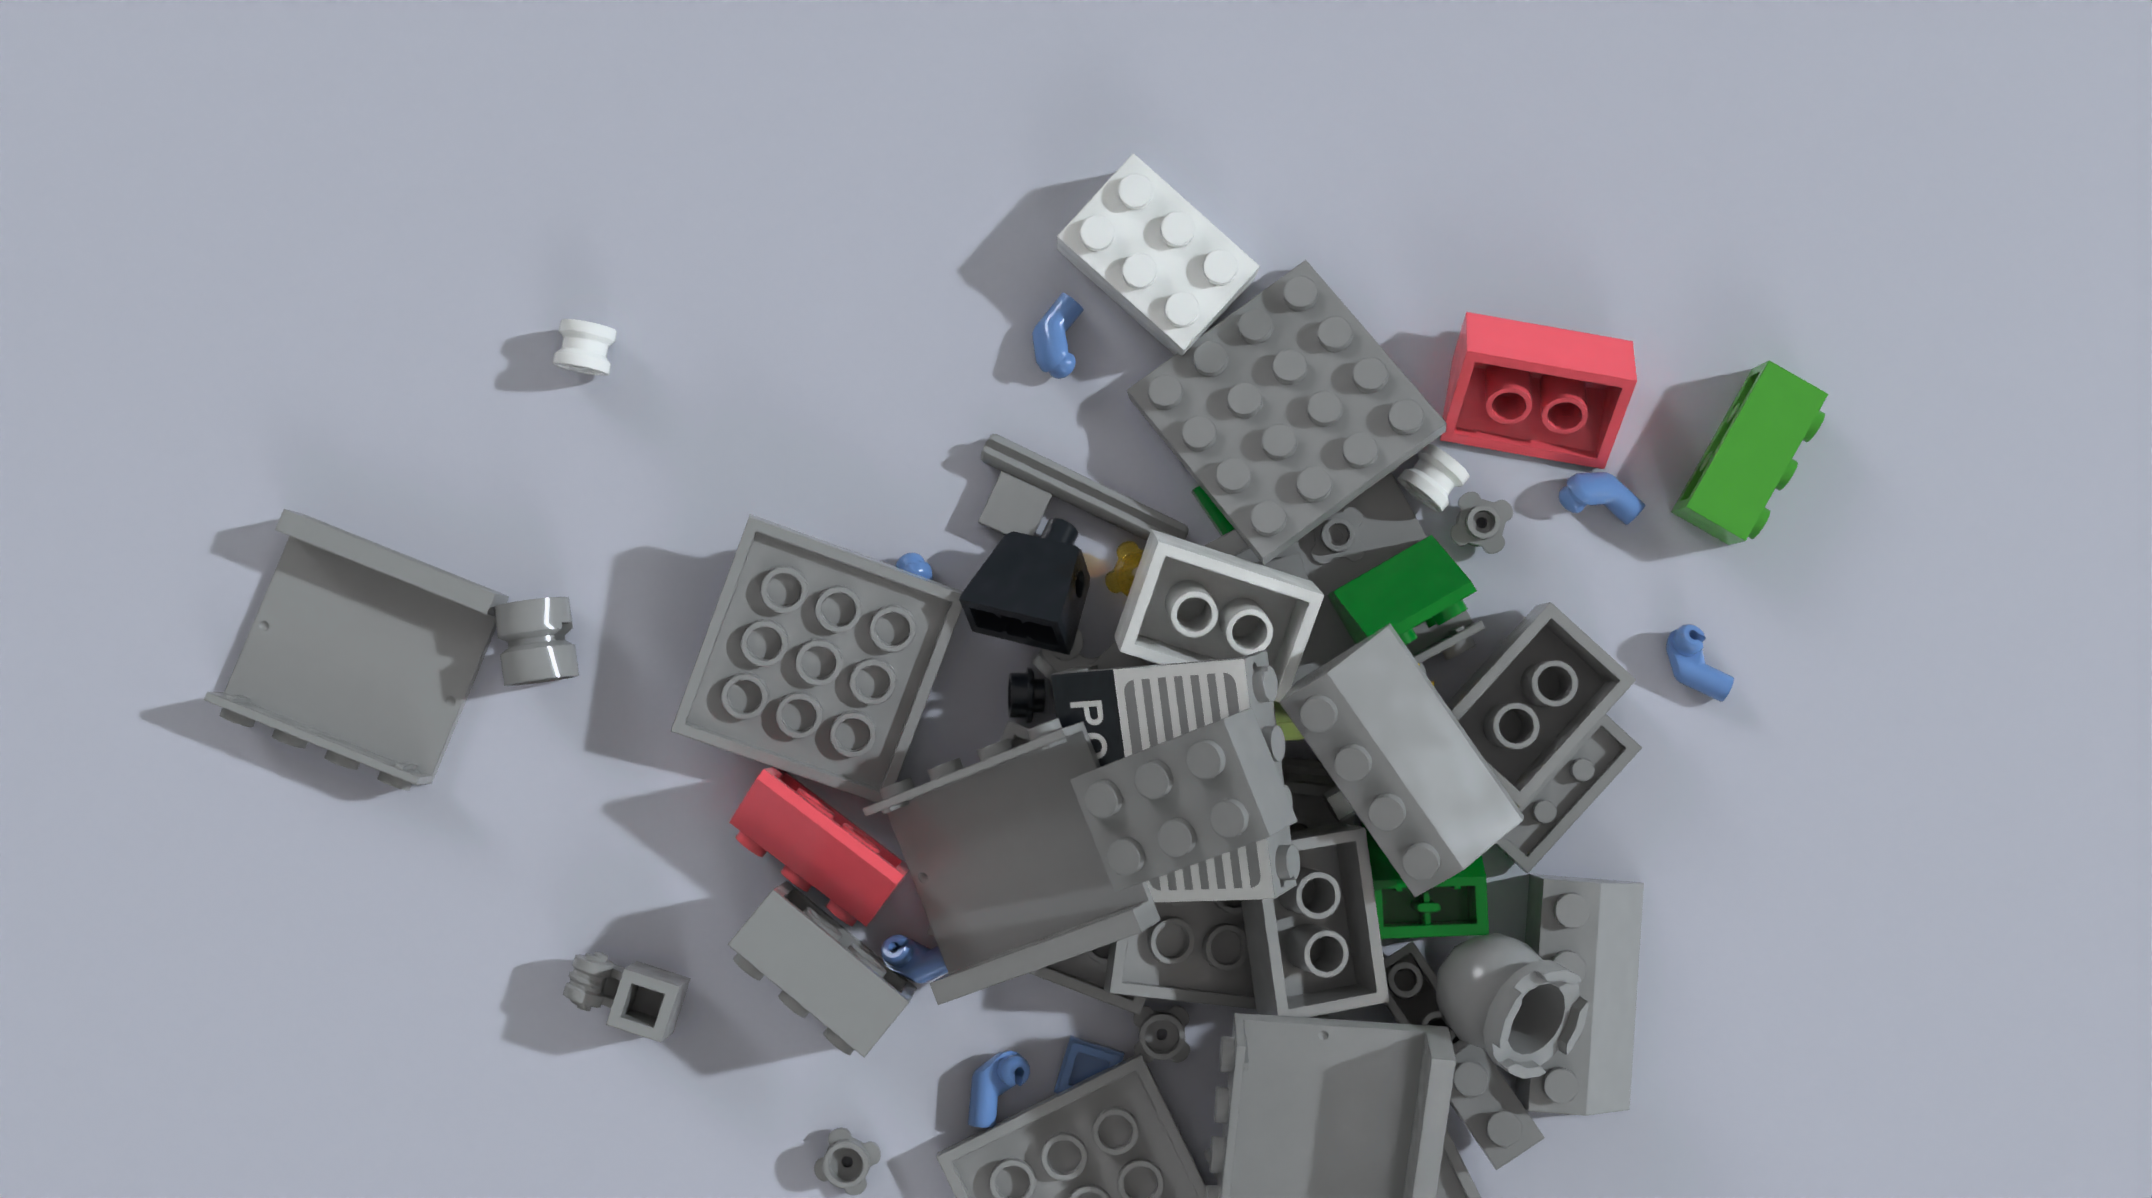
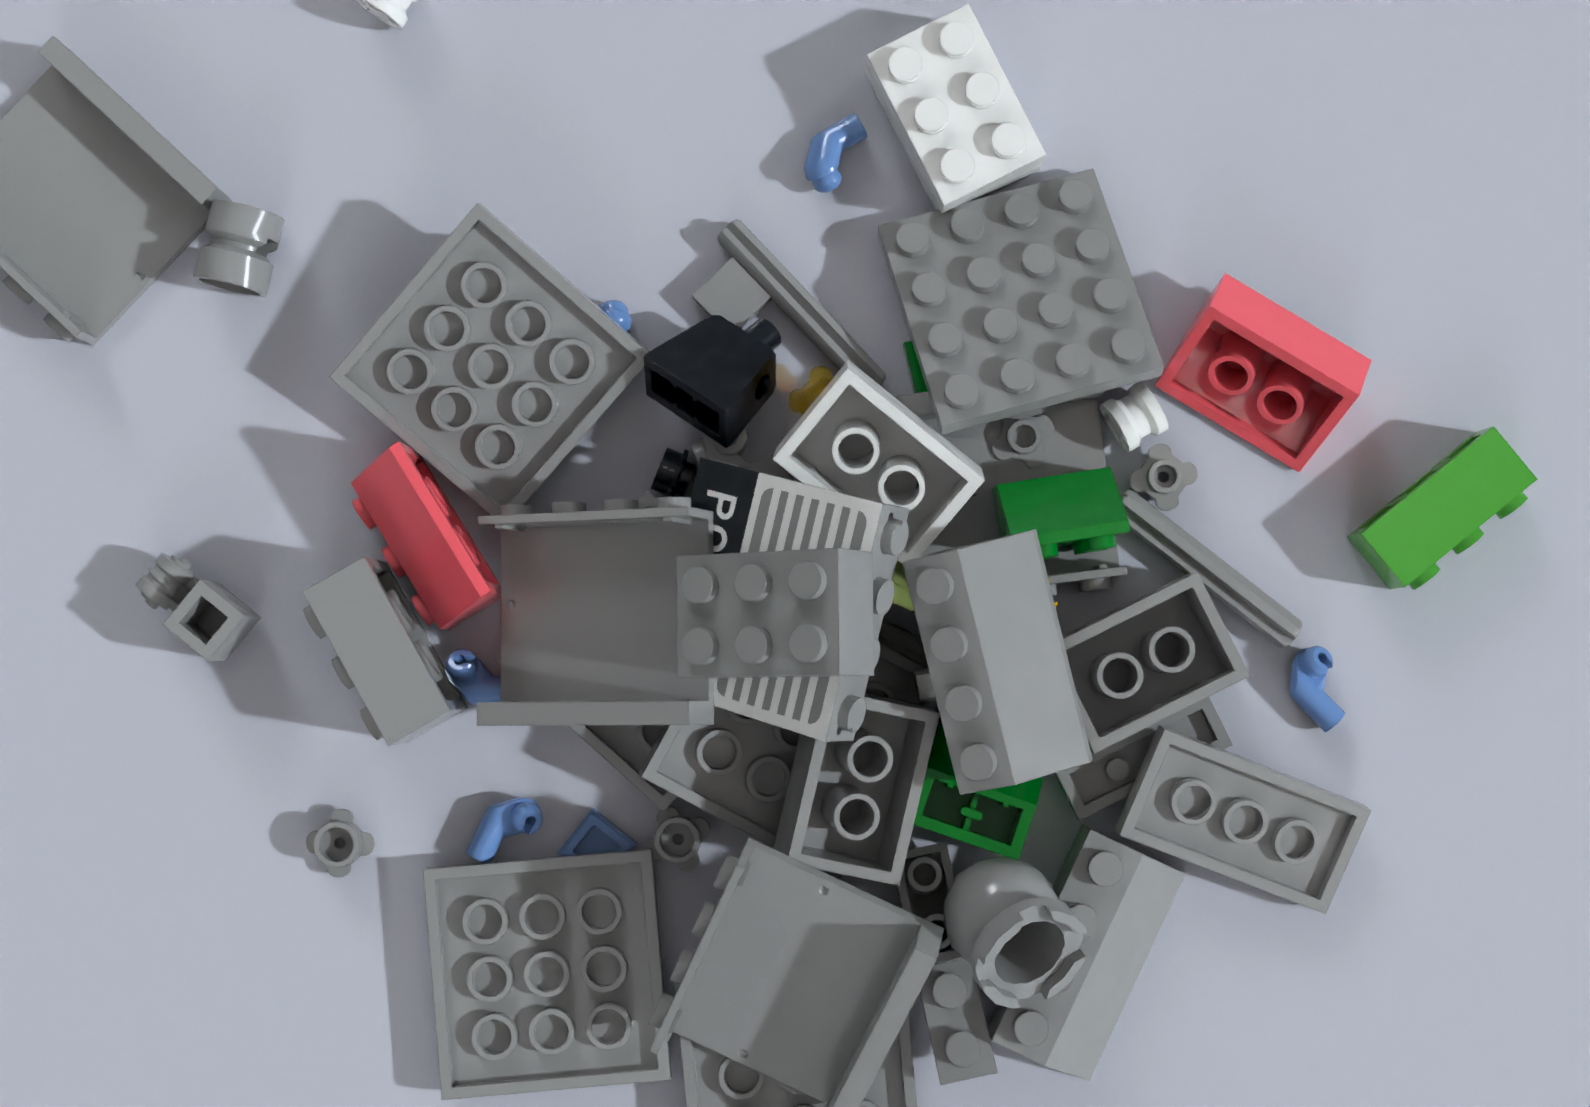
camera: 30 degrees right, 0 degrees up
(1565, 594) = (1216, 574): none -> light grey axle
(1600, 489) = (1288, 489): medium blue arm -> none
(1677, 814) = (1242, 819): none -> light grey plate

